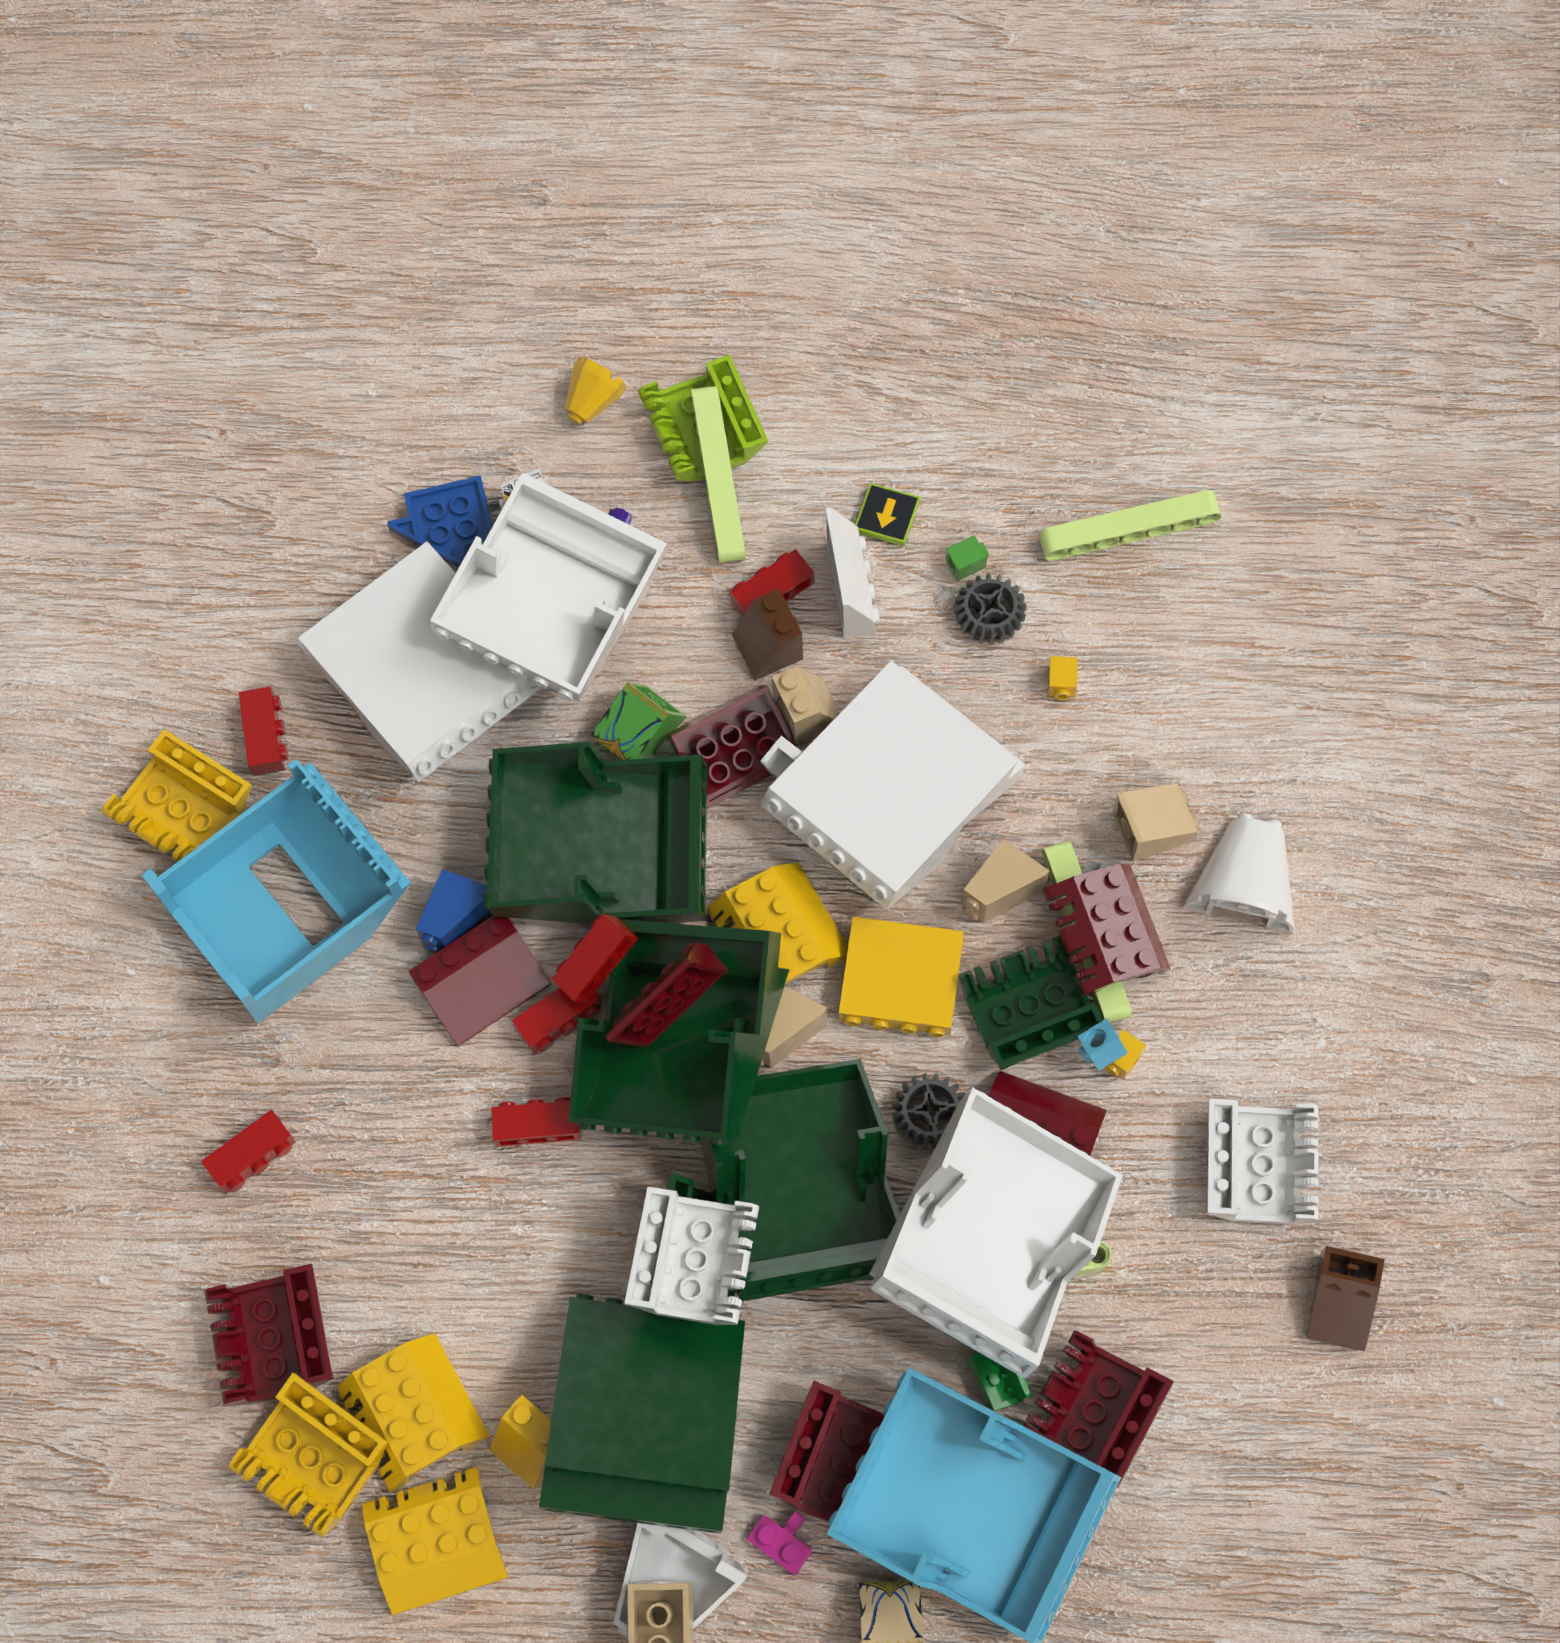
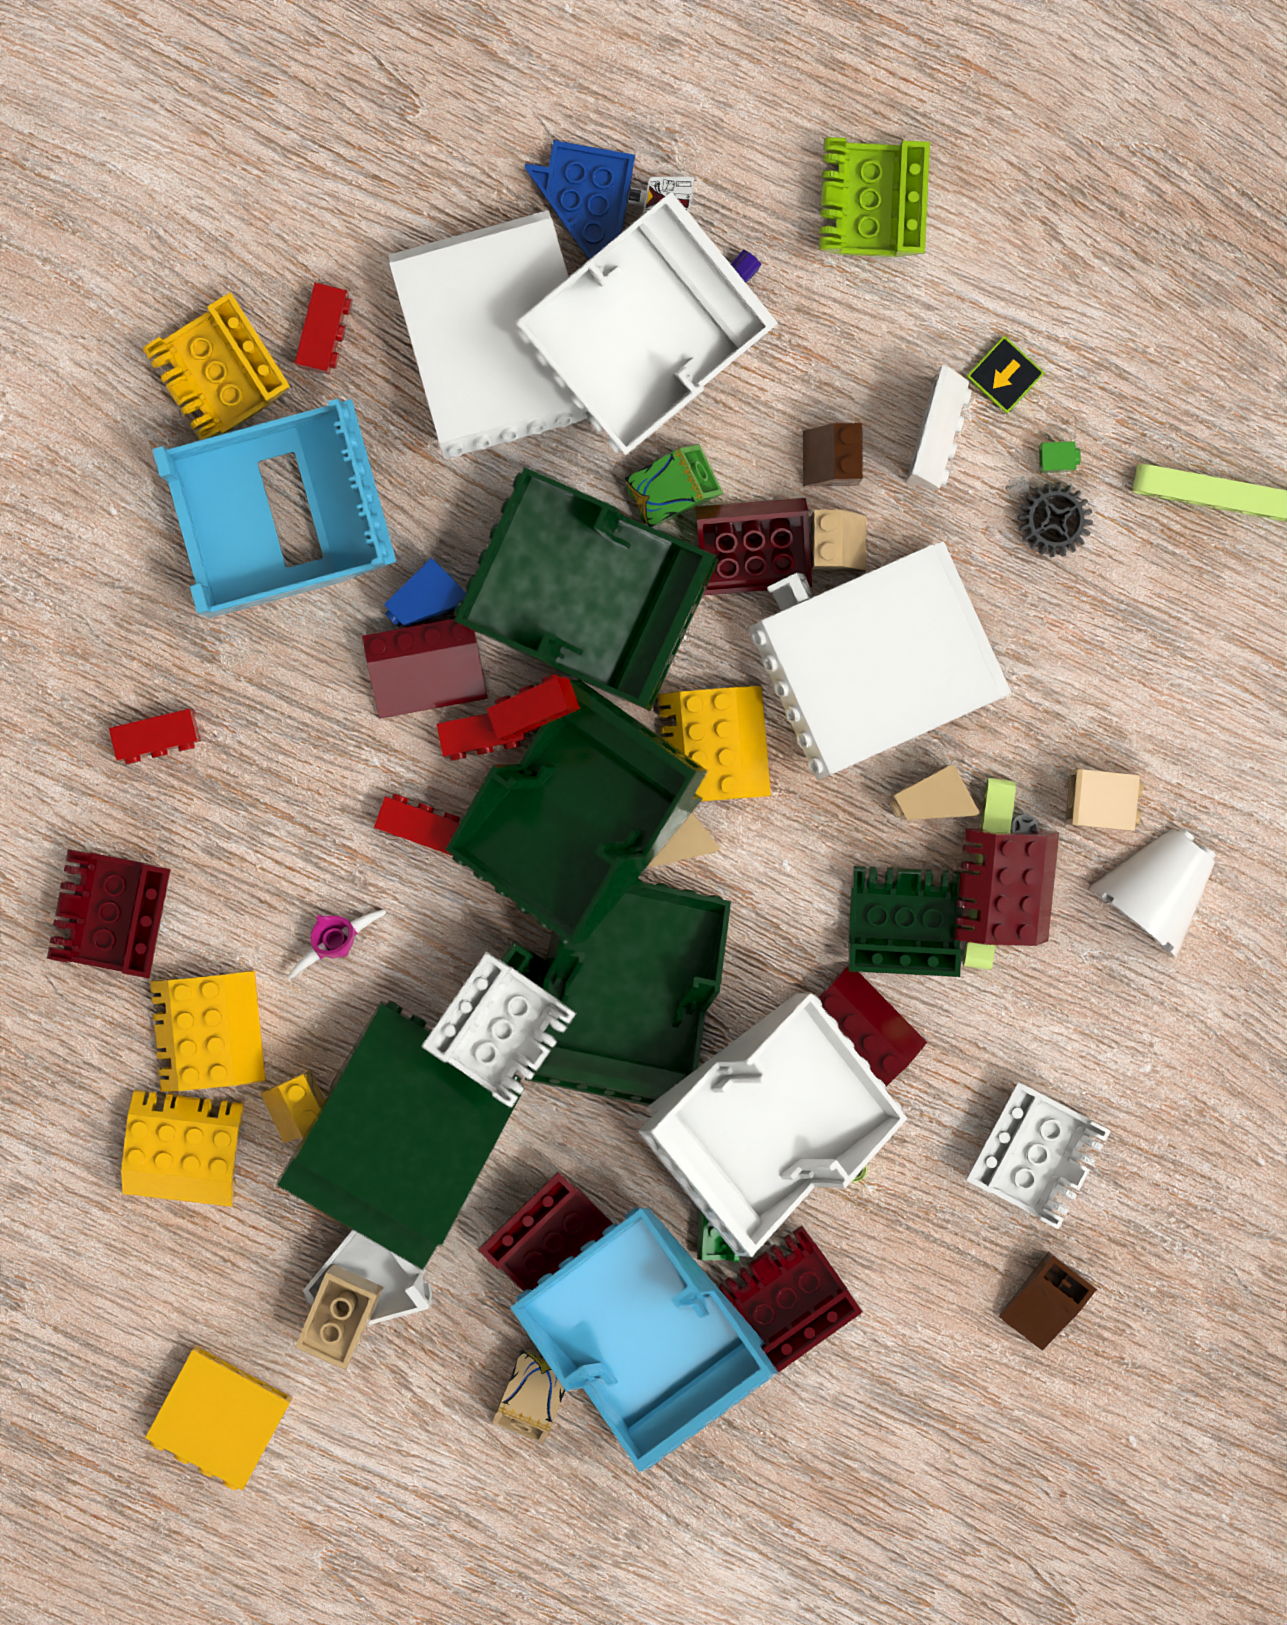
camera: 15 degrees right, 20 degrees up
(311, 1455) = (105, 1033): yellow slope -> none
(497, 1263) = (333, 938): none -> dark pink helmet
(591, 391) = (779, 114): yellow cone -> none
(667, 997) = (578, 781): dark red slope -> none
(718, 474) = (862, 262): yellowish green beam -> none
(781, 1543) = (473, 1283): dark pink plate -> none
(788, 574) = (862, 400): red brick -> none
(901, 977) = (803, 840): yellow panel -> none
(926, 1087) = (749, 968): dark grey gear -> none
(1062, 677) = (1088, 620): yellow brick -> none
(1101, 1045) = (955, 999): medium azure brick -> none
(1125, 1064) = (965, 1002): yellow brick -> none

